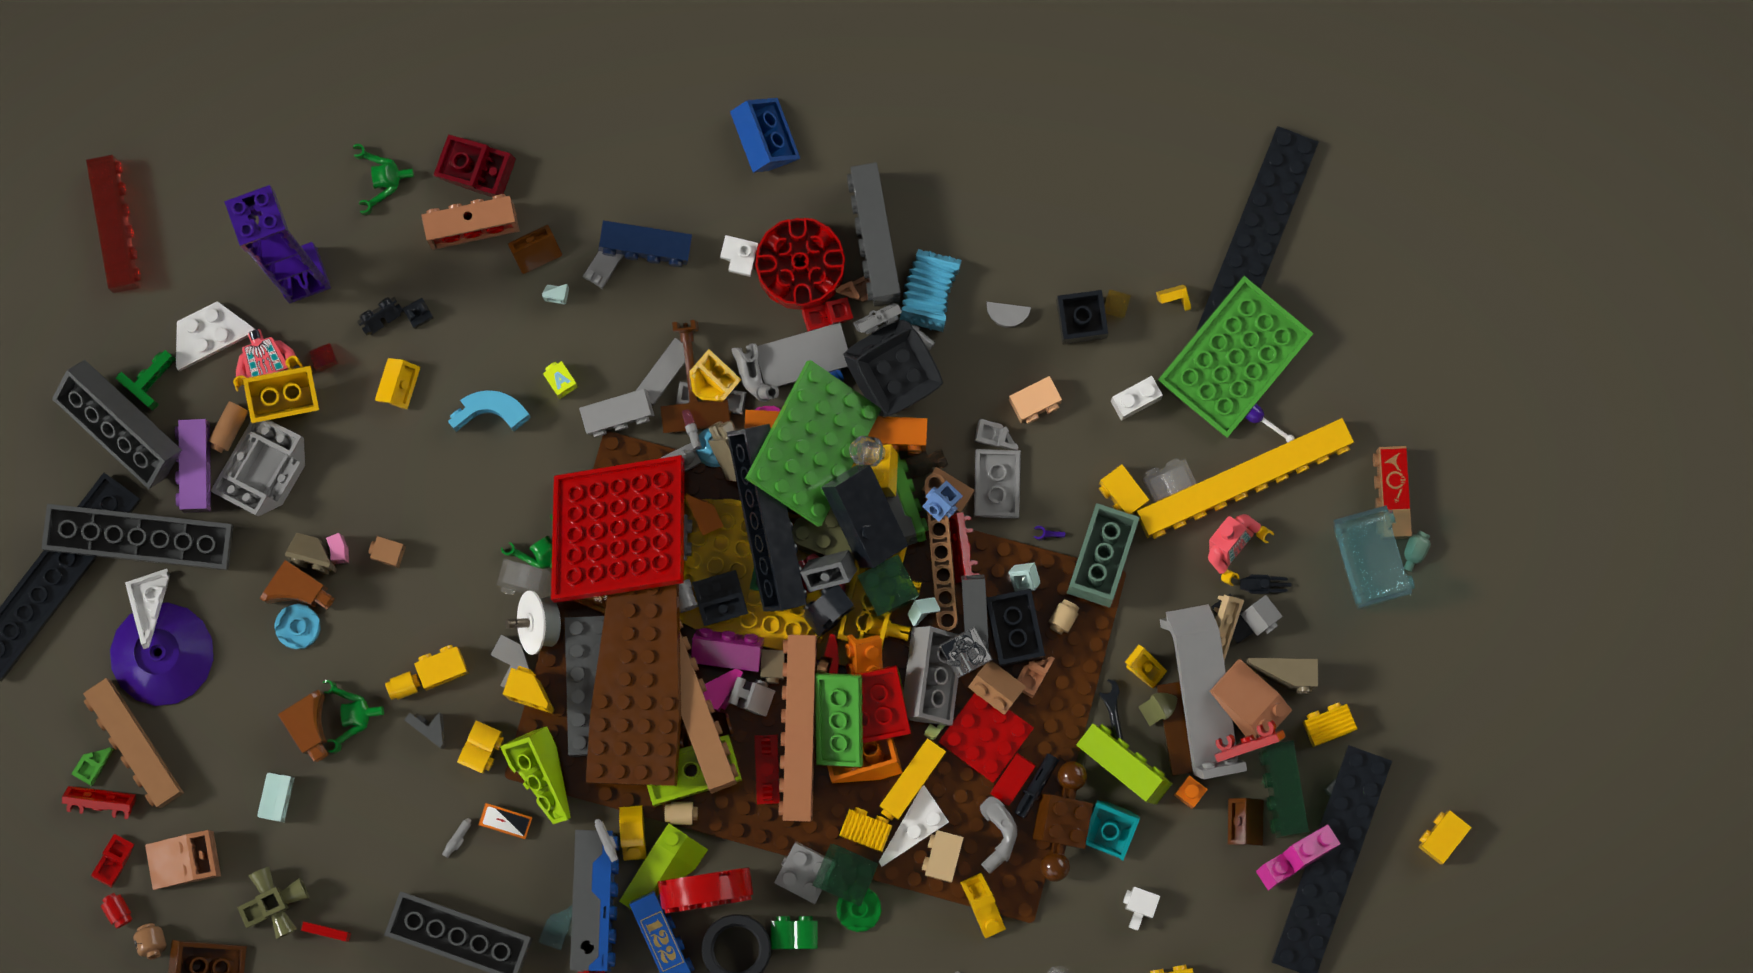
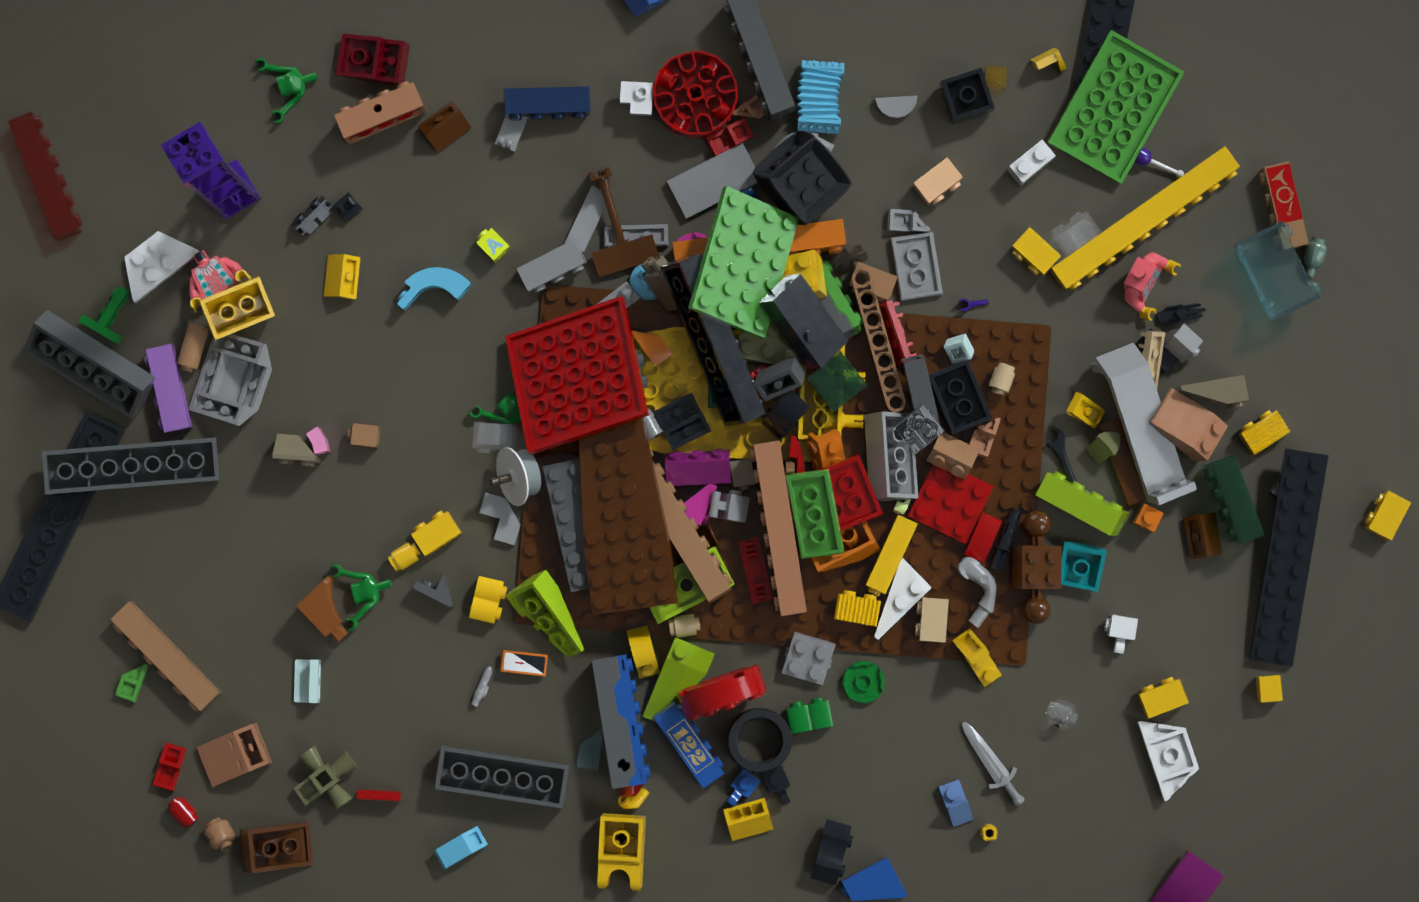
camera: 10 degrees left, 5 degrees up
(98, 800) = (145, 714): red plate -> none
(146, 601) = (151, 523): white wing -> none
(173, 674) = (196, 573): dark purple dish -> none
(295, 585) = (285, 482): dark orange hips -> none
(297, 626) = (295, 520): medium azure tile -> none
(323, 357) = (268, 265): clear red slope -> none
(527, 690) = (521, 539): yellow slope -> none
(556, 294) = (473, 165): light aqua slope -> none
(607, 841) = (624, 665): light grey piece -> none
(691, 430) = (624, 269): light grey piece -> none
(712, 378) = (634, 217): yellow slope -> none
(751, 375) = (669, 207): light grey piece -> none
(845, 874) = (846, 654): clear green brick -> none
(867, 451) = (794, 260): clear head -> none
(869, 323) = (770, 138): light grey plate -> none
(921, 609) = (870, 396): light aqua slope -> none
(942, 501) = (872, 294): medium blue brick -> none
(1103, 555) = (1028, 315): sand green brick -> none
(1248, 742) = (1195, 463): red plate -> none
(1297, 857) = (1257, 559): dark pink arch -> none

